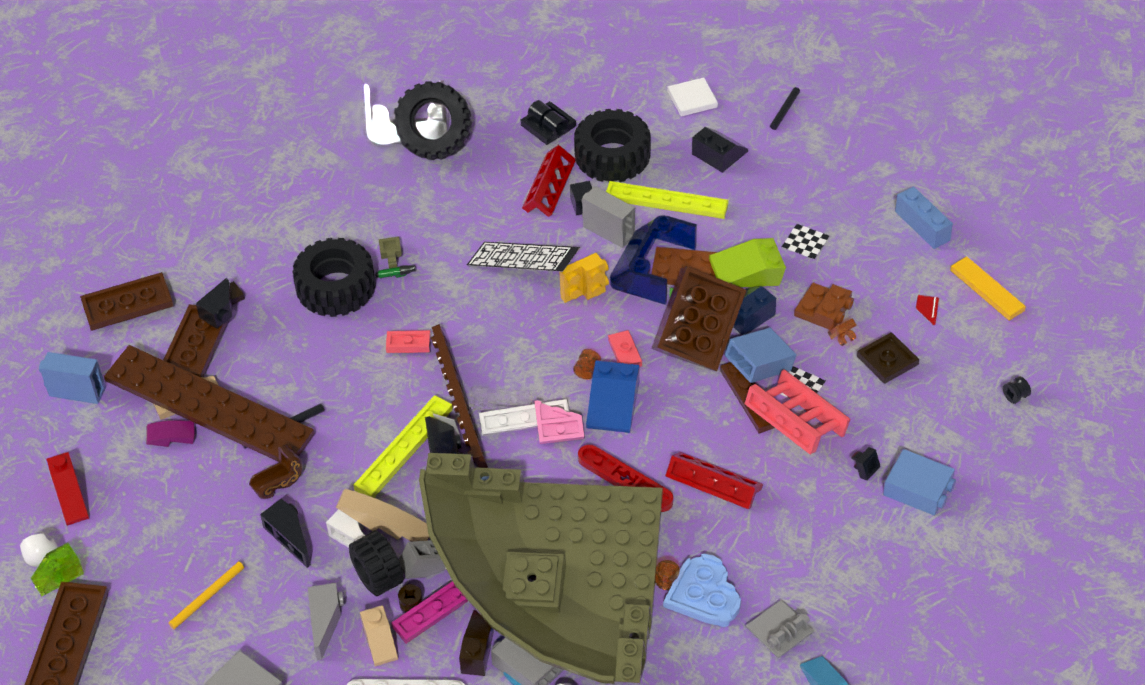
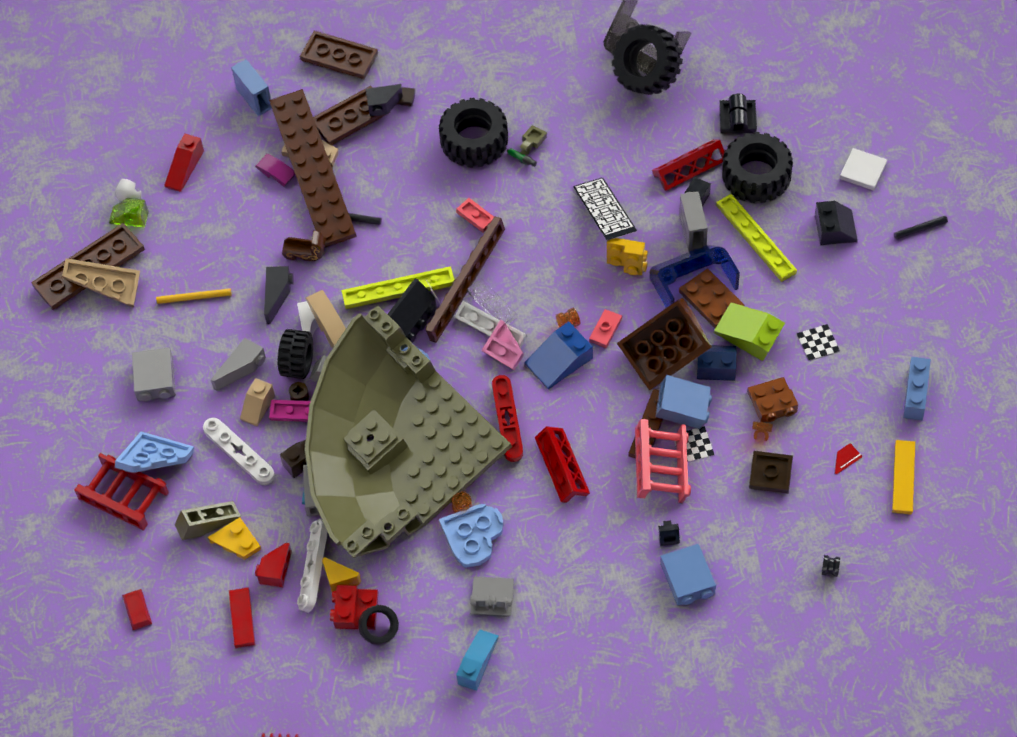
camera: 45 degrees right, 10 degrees up
(101, 642) = (107, 280): none -> tan wing

